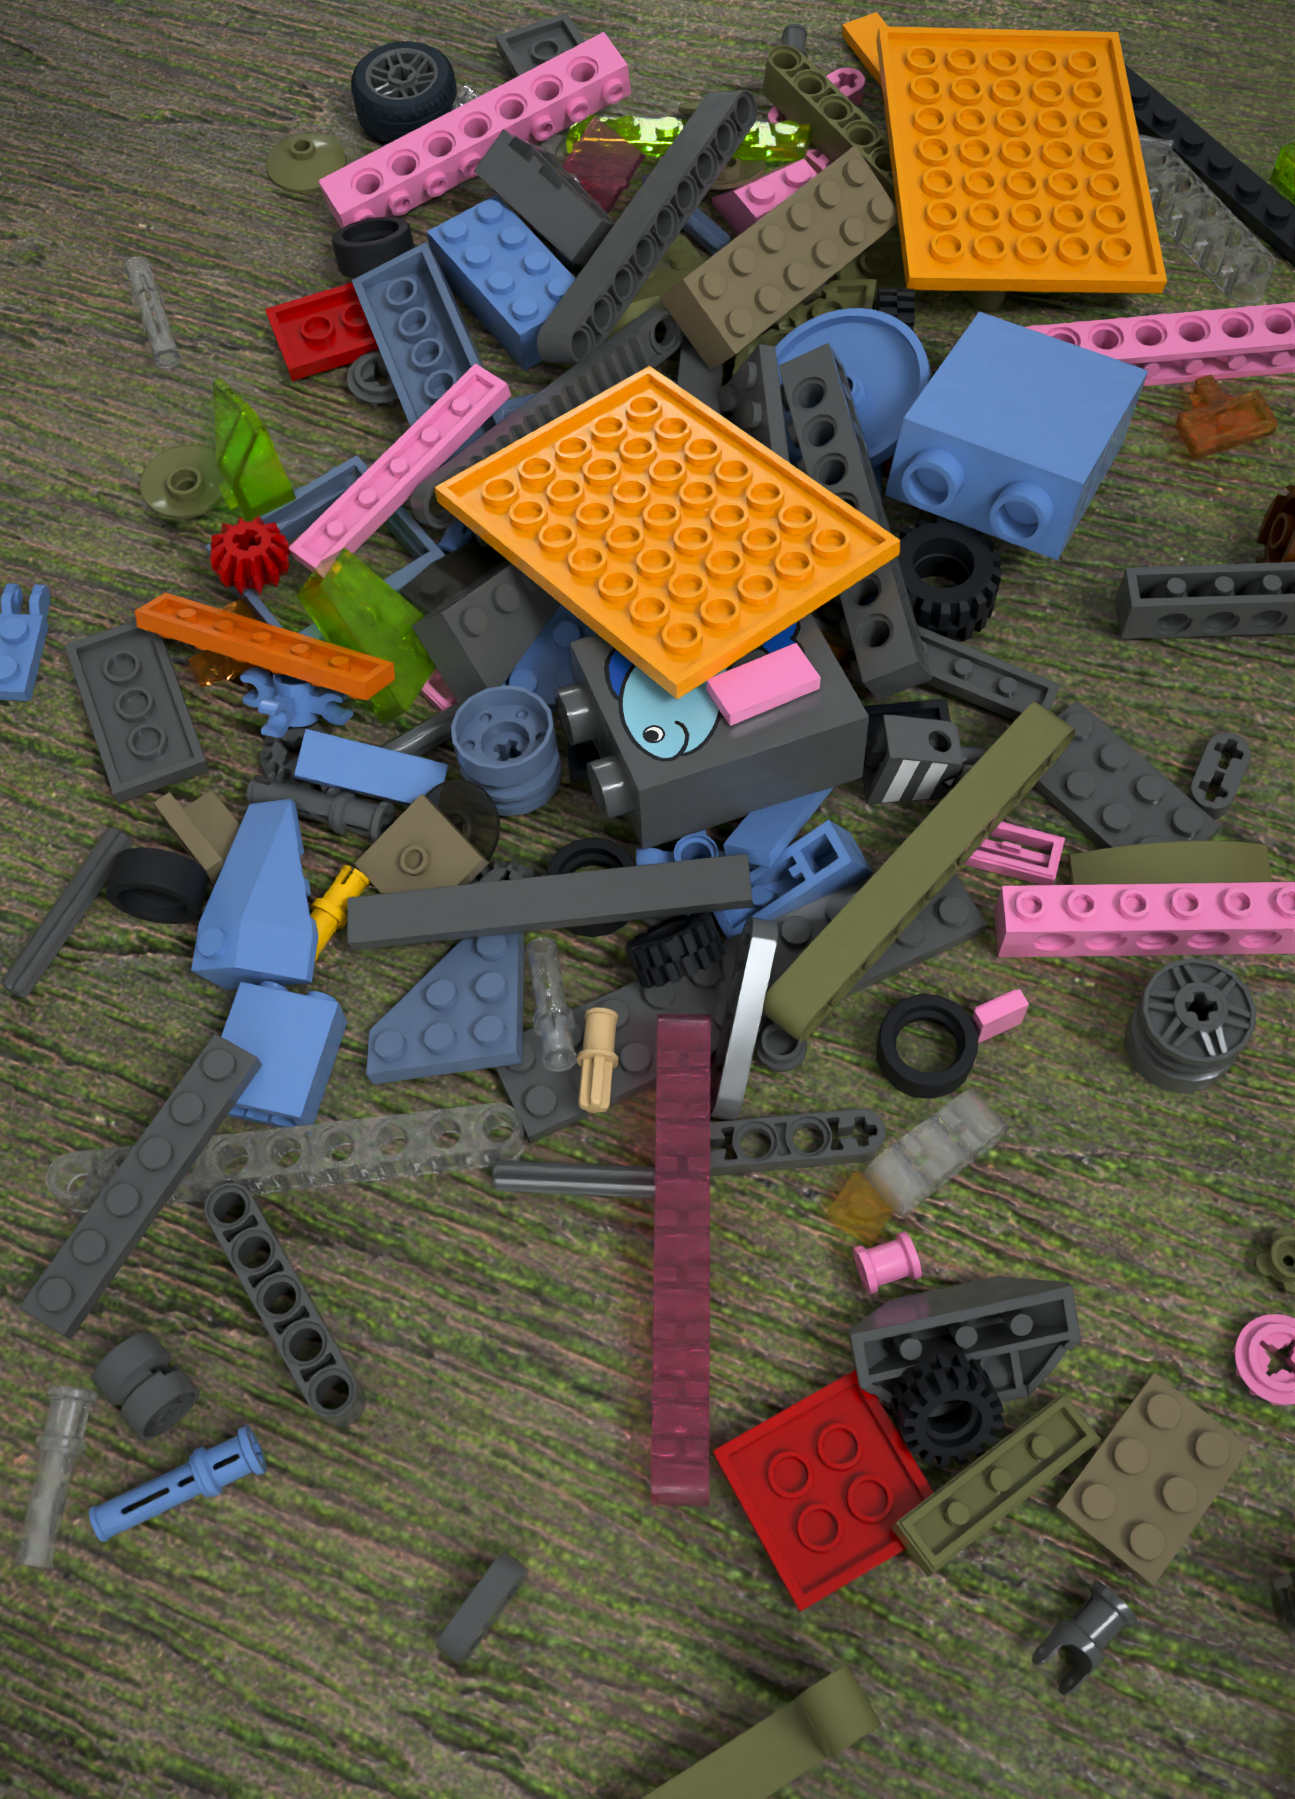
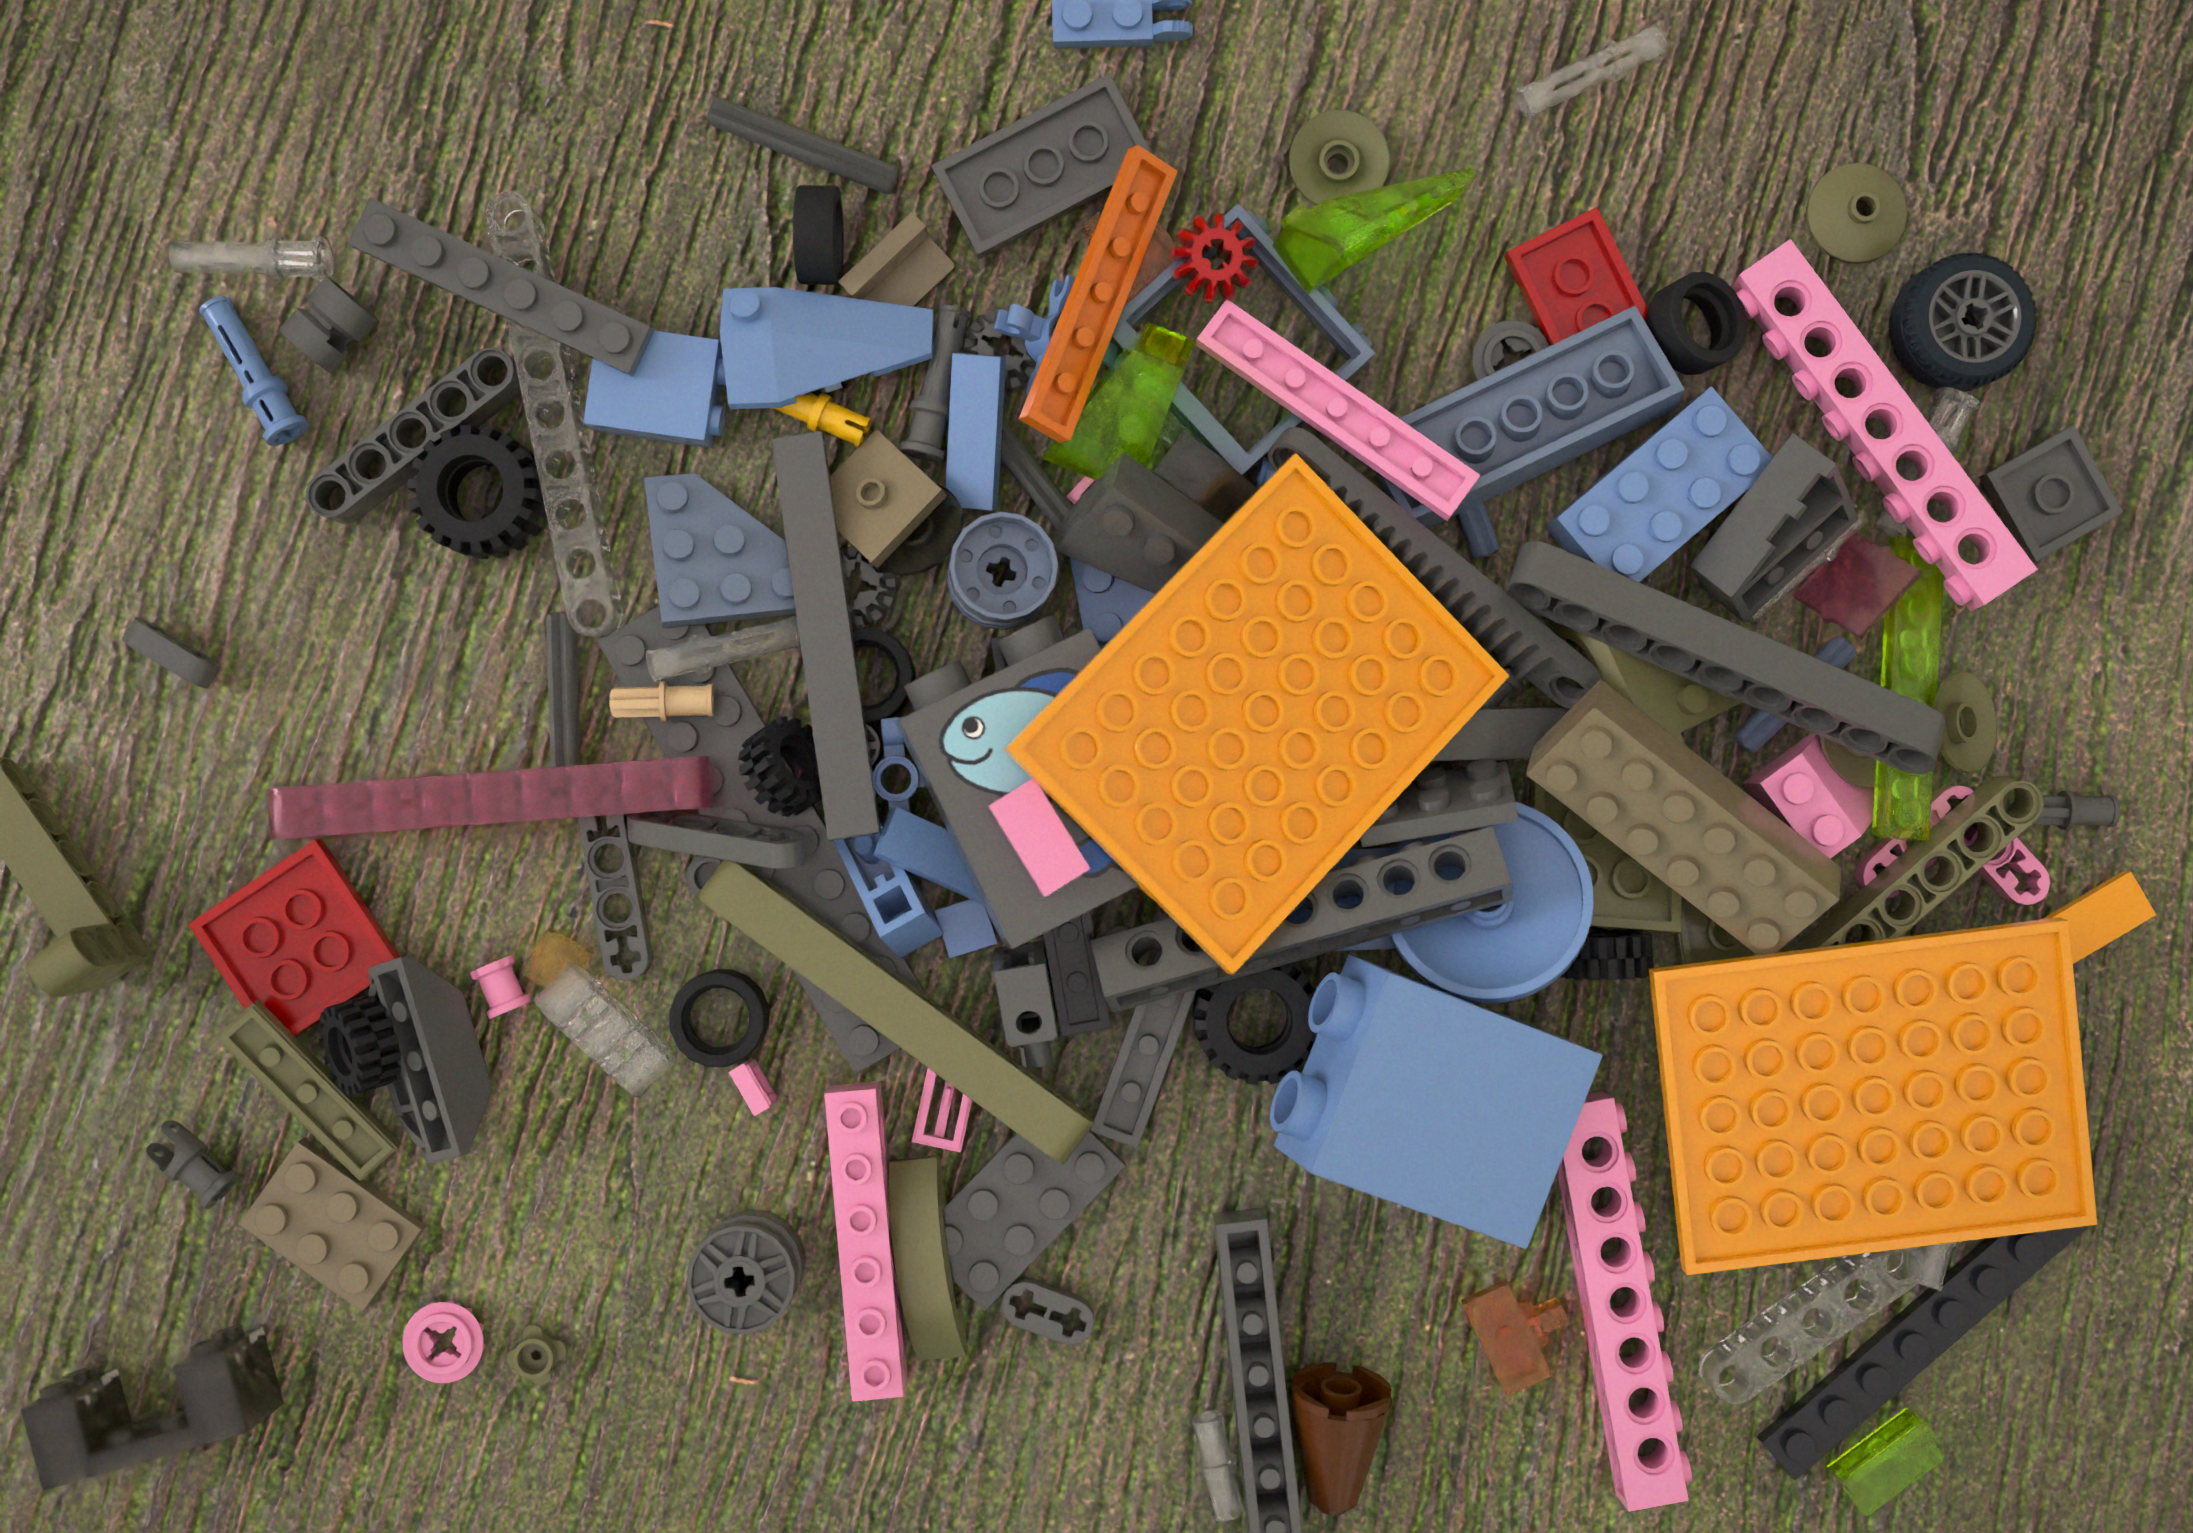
camera: 85 degrees right, 25 degrees up
(332, 1201) = (439, 483): none -> black tyre
(849, 813) = (965, 927): none -> medium blue tile

